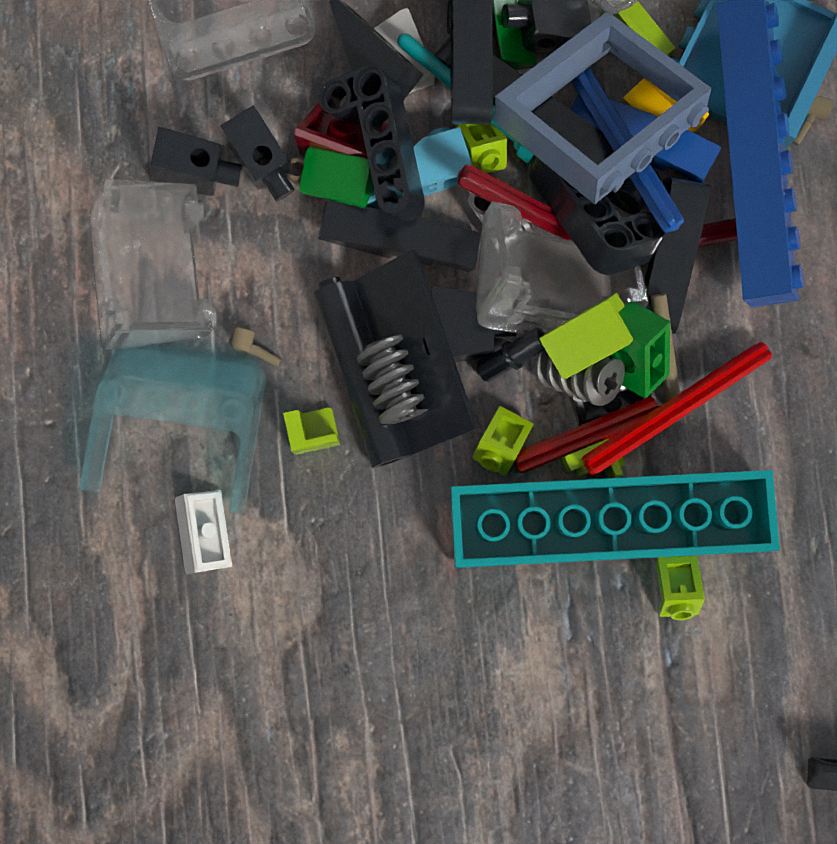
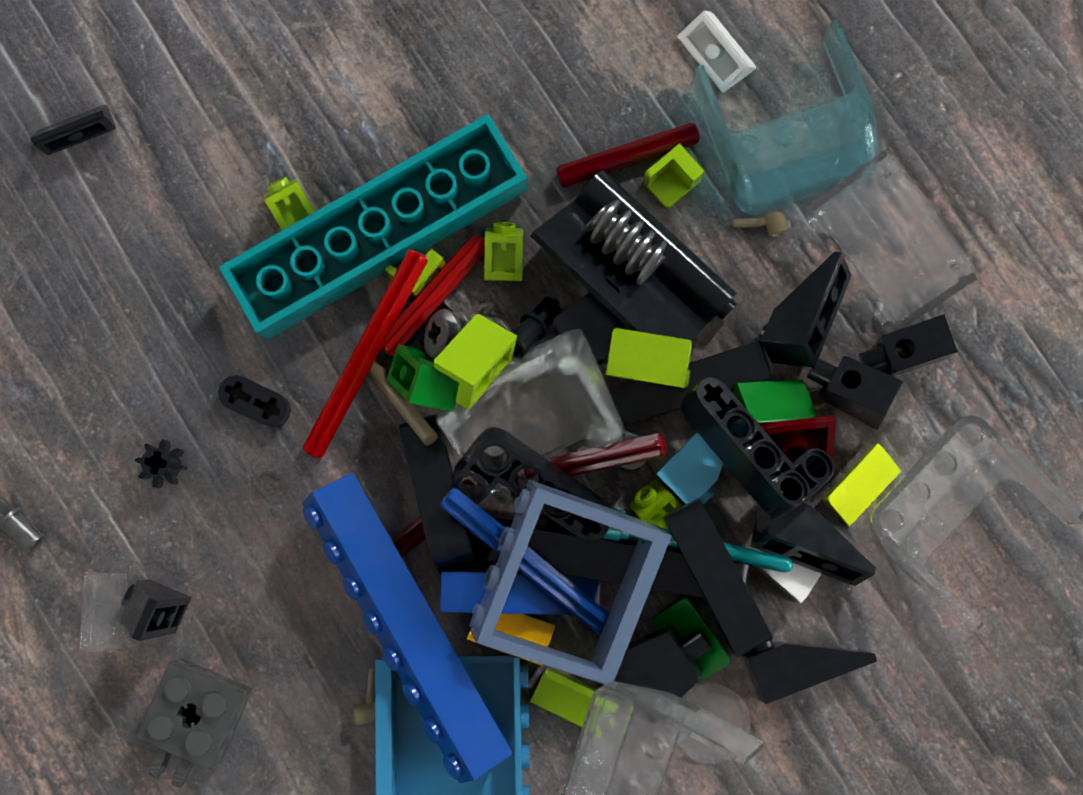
camera: 155 degrees right, 0 degrees up
(267, 239) = (806, 315): none -> black slope
(296, 82) = (861, 484): none -> neon yellow slope
(340, 474) = (627, 154): none -> dark red axle
(429, 261) = (649, 357): none -> lime panel
(802, 417) = (258, 393): none -> black beam

